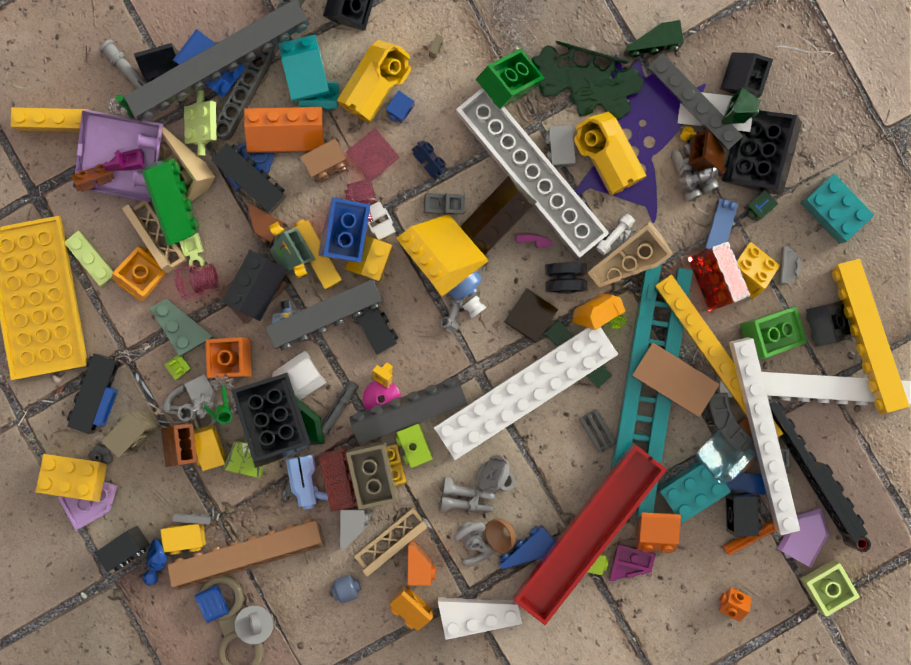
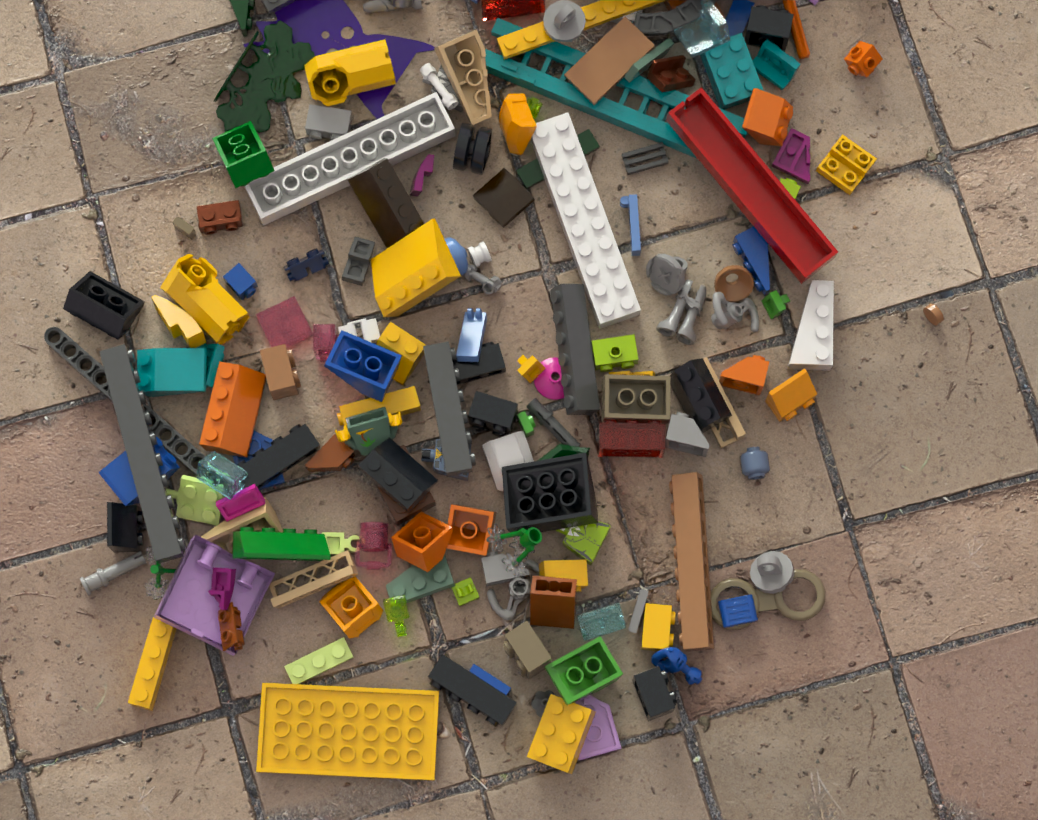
camera: 80 degrees left, 10 degrees down
(125, 485) = (584, 671): none -> bright green slope
(144, 314) = (397, 611): none -> clear neon green plate
(179, 487) = (601, 621): none -> clear light blue hinge
(202, 157) = (241, 503): none -> dark pink tile
(207, 321) = (422, 541): none -> orange slope
(219, 134) = (221, 474): none -> clear light blue hinge
(302, 482) = (626, 483): light blue piece -> none
(331, 353) = (492, 414): none -> black brick
(333, 384) = (526, 423): none -> bright green plate
(347, 63) = (179, 322): none -> yellow slope
(391, 529) = (699, 394): none -> black slope
(397, 318) = (471, 336): none -> medium blue hinge
(454, 73) = (219, 217): none -> copper bracket
(491, 574) = (775, 304): none -> bright green tile
(537, 434) = (631, 203): none -> medium blue hinge
(634, 609) = (846, 164): none -> yellow slope
(677, 436) = (669, 74): none -> copper bracket
(685, 414) = (646, 61): none -> sand green tile
(701, 331) = (564, 21): none -> light grey tile
(710, 527) = (775, 64): none -> teal bracket

